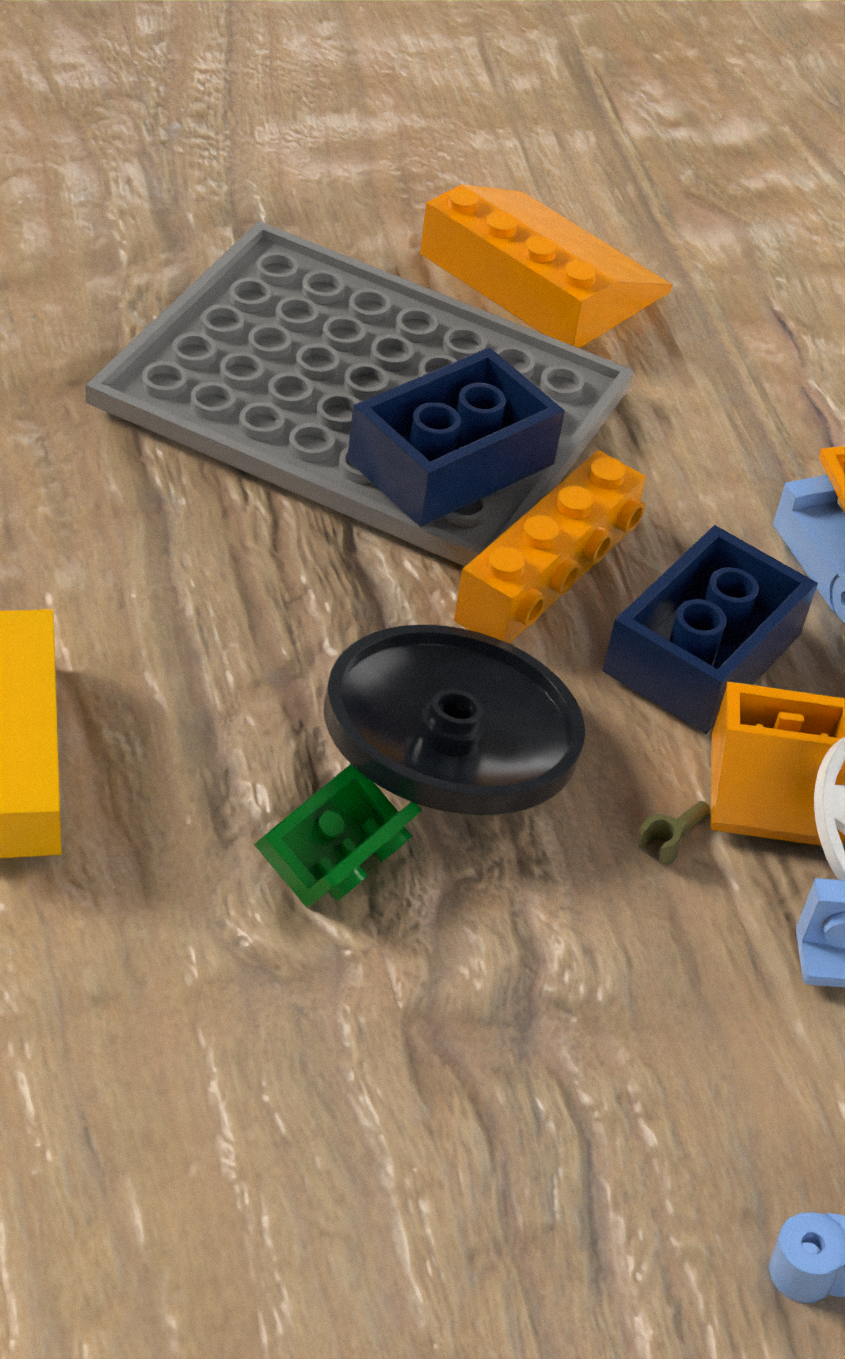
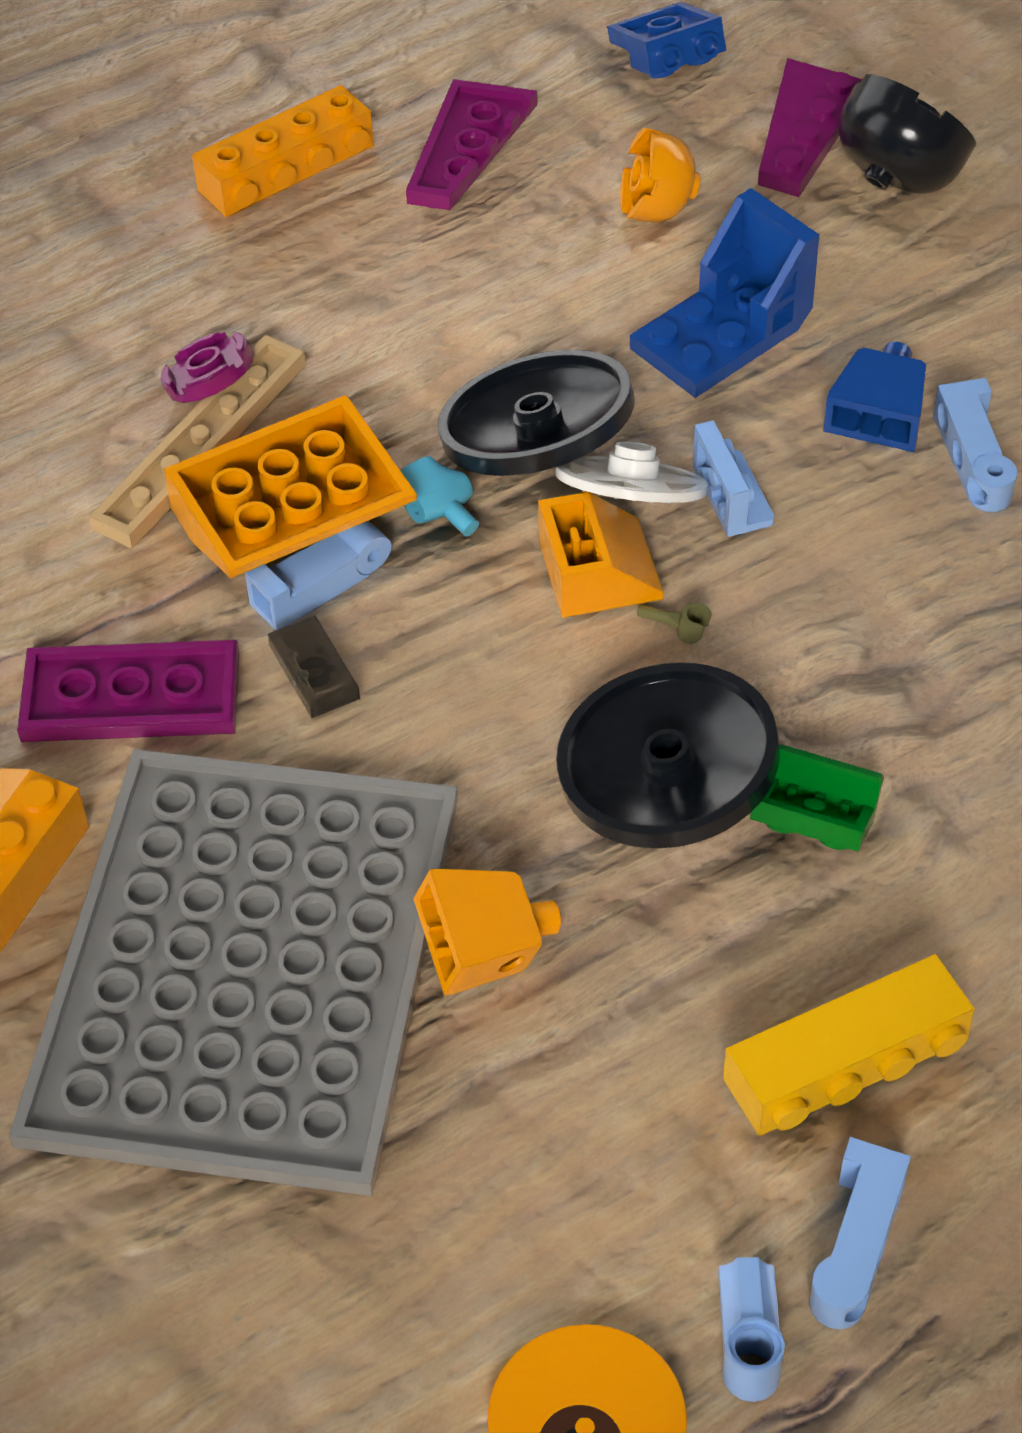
camera: 100 degrees left, 5 degrees up
(307, 515) = (481, 925): none -> light orange torso
(454, 435) = (348, 822): dark blue brick -> none
(550, 548) = (414, 744): light orange brick -> none
(684, 517) = (313, 666): none -> clear smoke plate
(708, 622) = (472, 619): dark blue brick -> none
(722, 407) = (129, 691): none -> magenta tile

